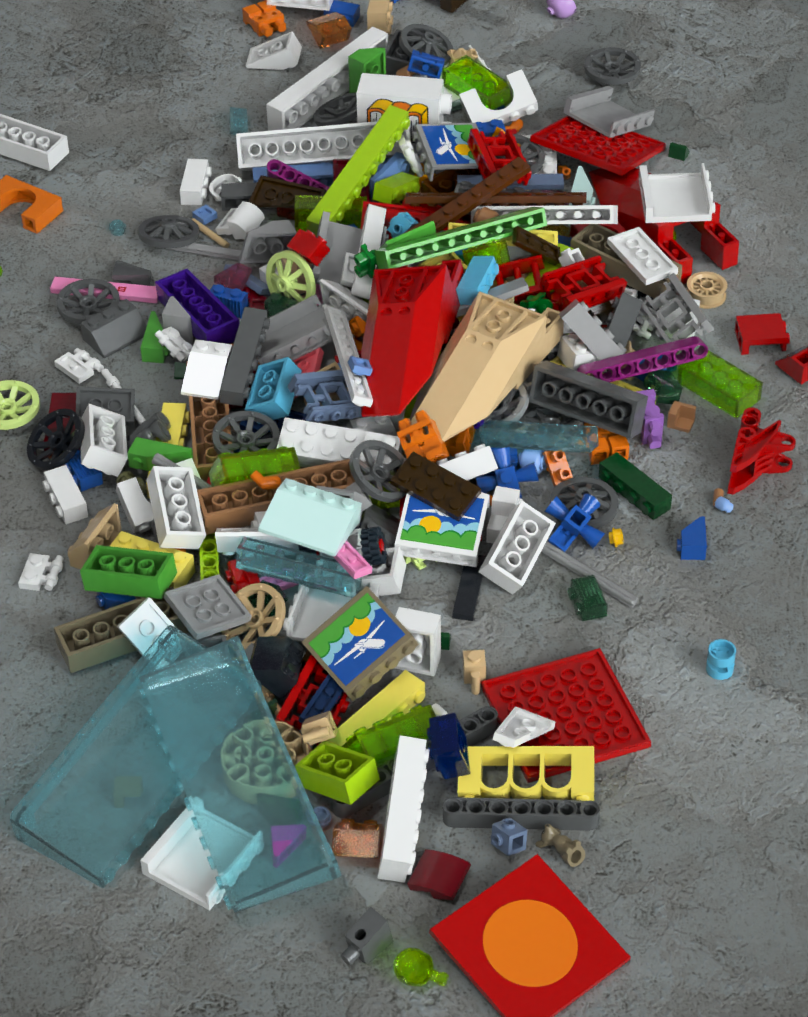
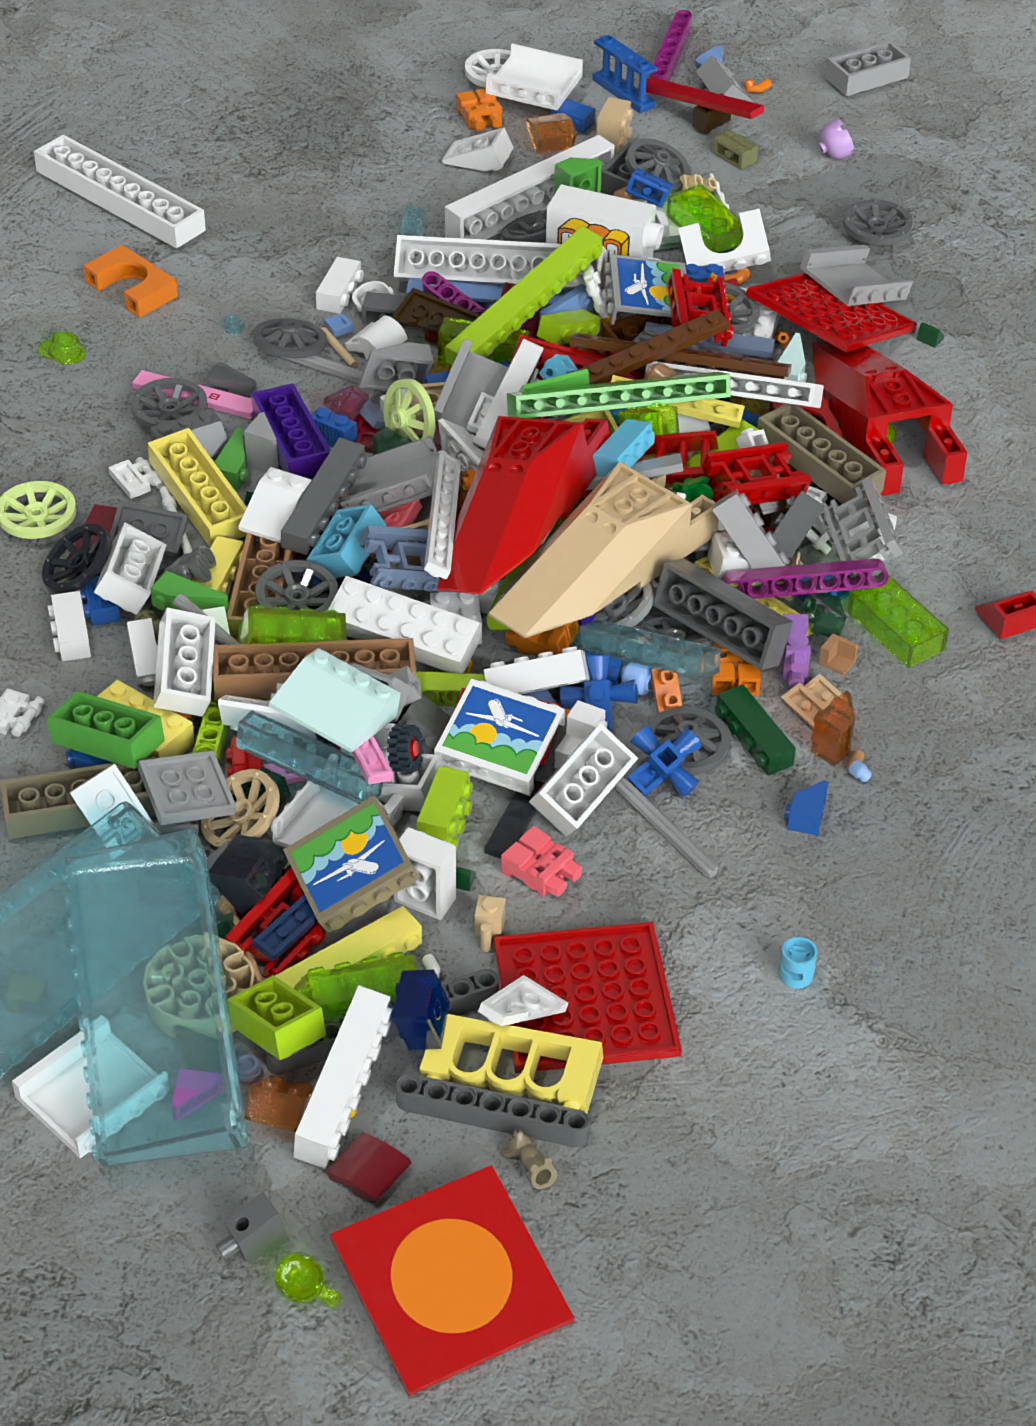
camera: 10 degrees right, 0 degrees up
(100, 531) = (90, 678): tan slope -> none
(135, 364) = (197, 485): none -> light yellow brick
(174, 343) = (249, 465): white plate -> none
(265, 483) = (295, 649): orange arm -> none
(309, 246) = (435, 378): red brick -> none
(318, 728) = (270, 959): tan brick -> none
(360, 366) = (448, 528): medium blue plate -> none
(365, 262) = (493, 405): green hips -> none
(377, 473) = (438, 660): dark grey wheel -> none
(416, 583) = (446, 805): none -> lime brick
(422, 438) = (501, 631): orange hips -> none
(435, 486) = (501, 688): dark brown plate -> none
(481, 22) = (735, 149): none -> olive brick
(500, 618) = (540, 863): none -> coral hips
(509, 836) = (466, 1136): sand blue brick -> none
(535, 245) = (711, 418): dark brown tile -> none
(587, 598) = (656, 857): clear green brick -> none
(616, 537) = (714, 788): yellow plate -> none
(642, 255) = (838, 451): white plate -> none
(675, 456) = (810, 698): none -> tan slope
(676, 196) = (900, 386): white panel -> none
(697, 475) = (834, 730): none -> clear orange slope
(707, 288) = (915, 505): tan wheel -> none
(758, 451) = (917, 712): red piece -> none
(760, 330) = (968, 565): red panel -> none

